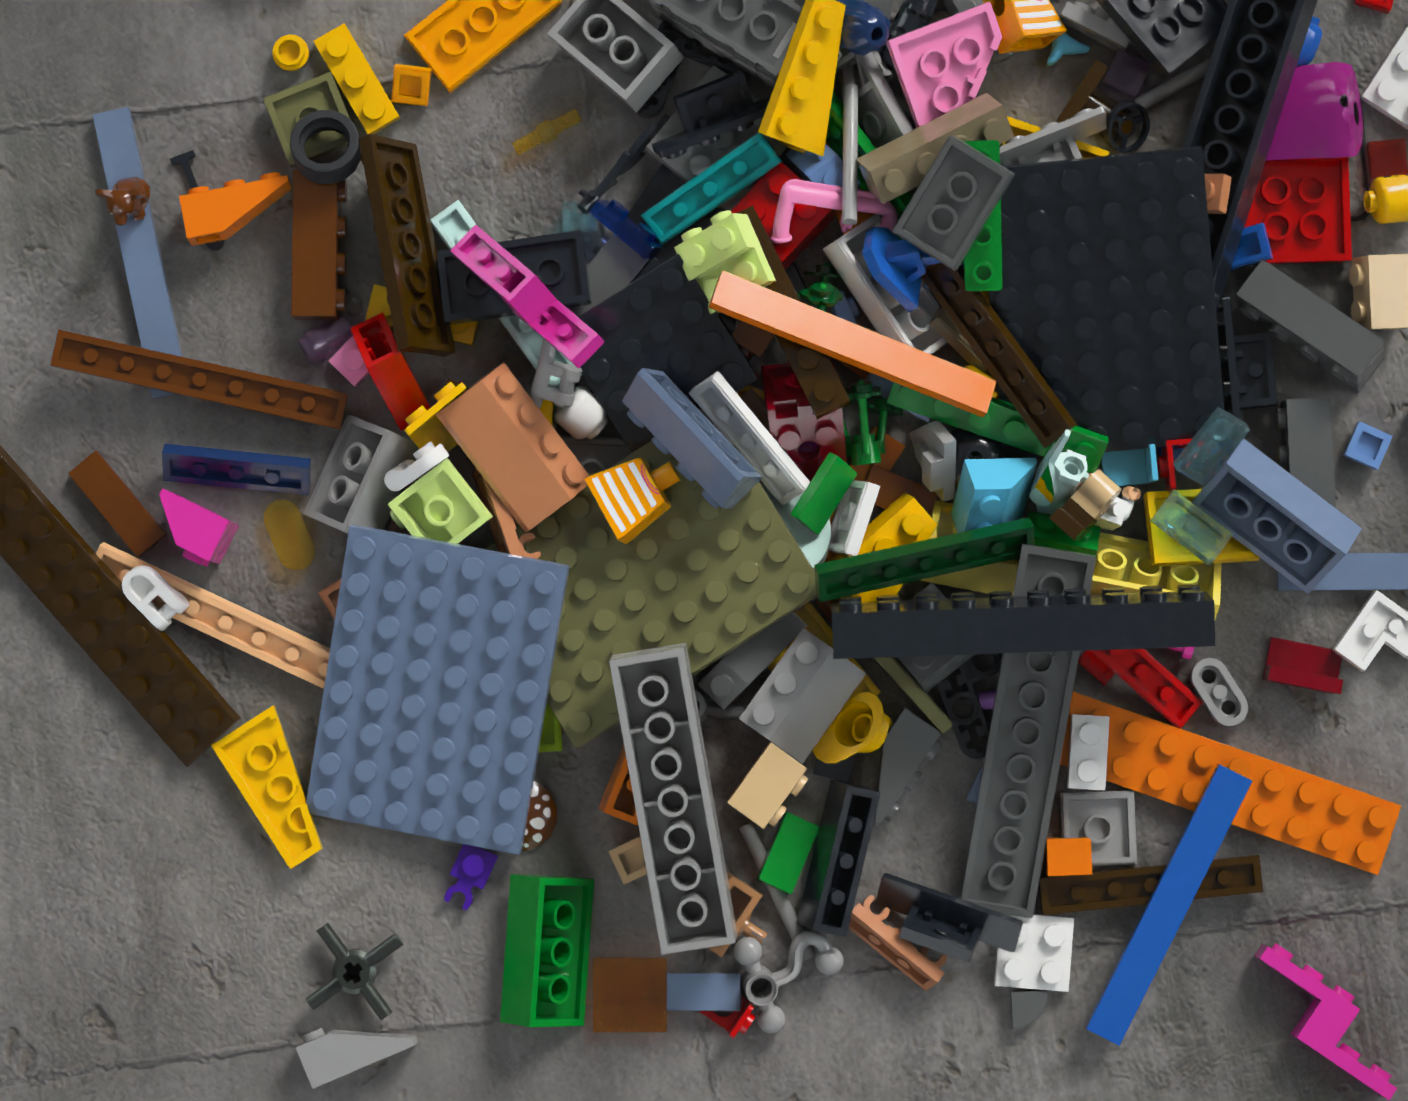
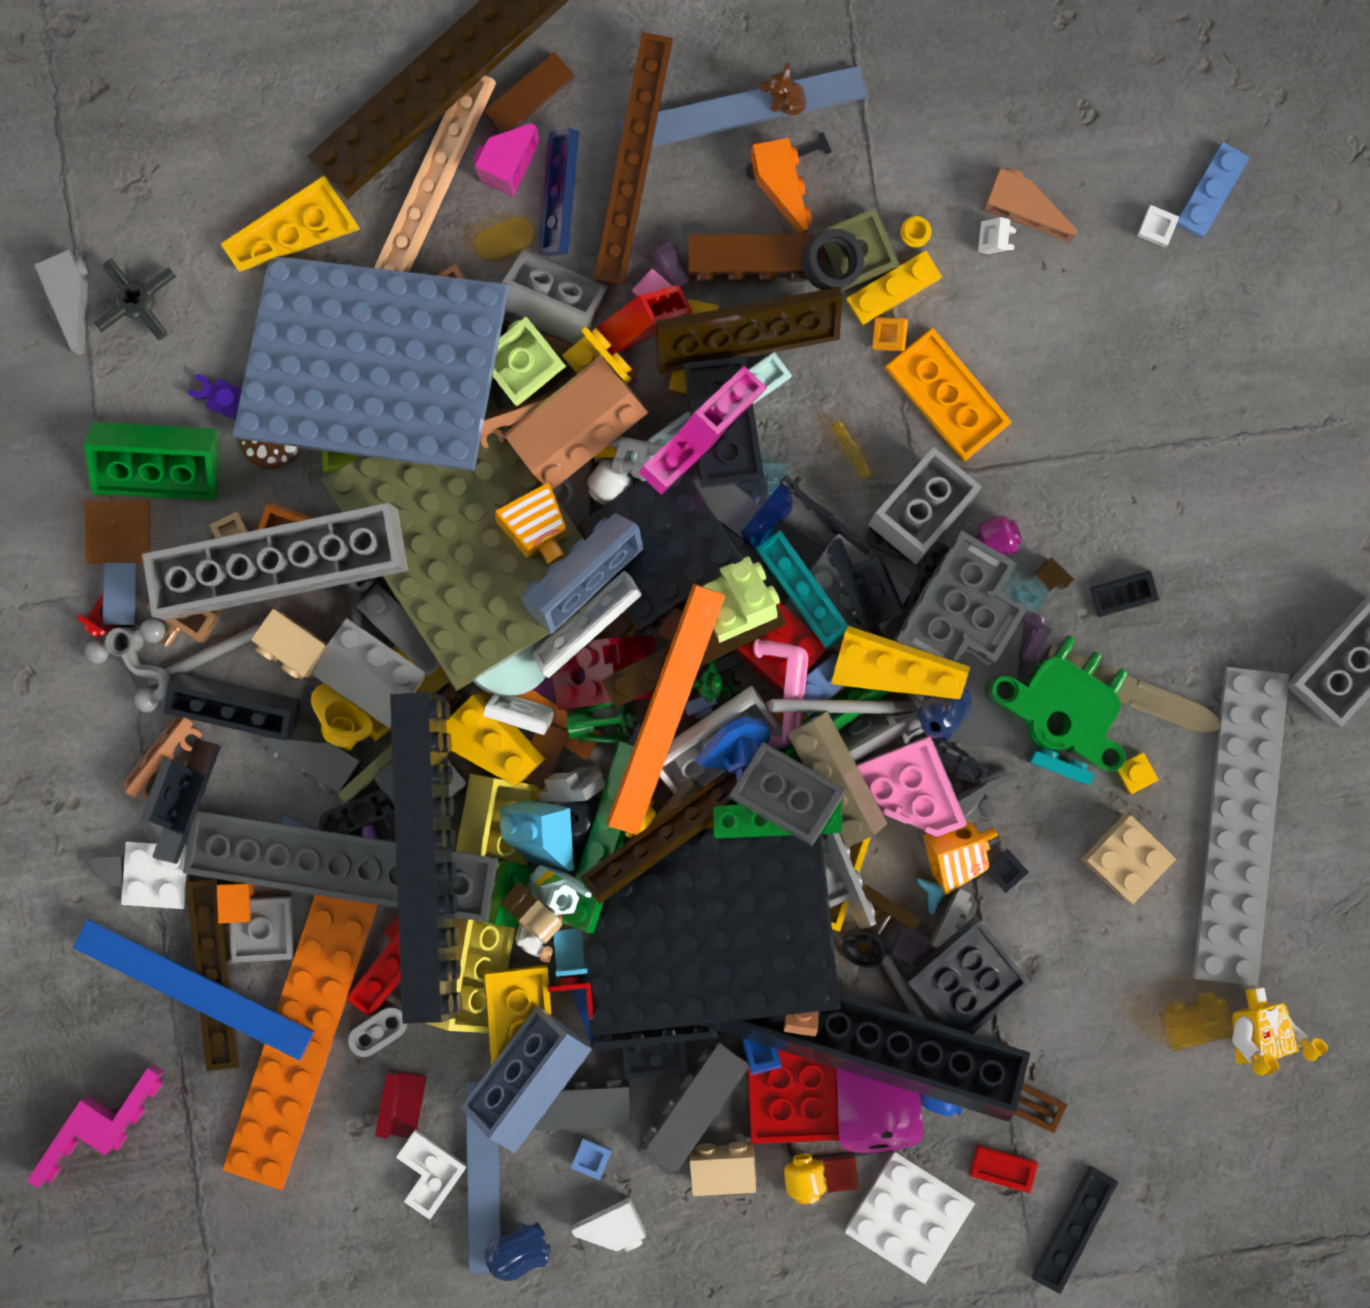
camera: 80 degrees right, 0 degrees up
(143, 585) = (457, 115): white plate -> none
(410, 470) = (558, 339): white plate -> none
(787, 853) = (237, 663): green tile -> none
(824, 493) = (540, 688): green tile -> none
(922, 559) = (481, 772): dark green plate -> none
(1088, 752) = (323, 919): white plate -> none
(1191, 527) = (515, 1005): clear light blue plate -> none
(1211, 446) = (584, 1021): clear light blue plate -> none

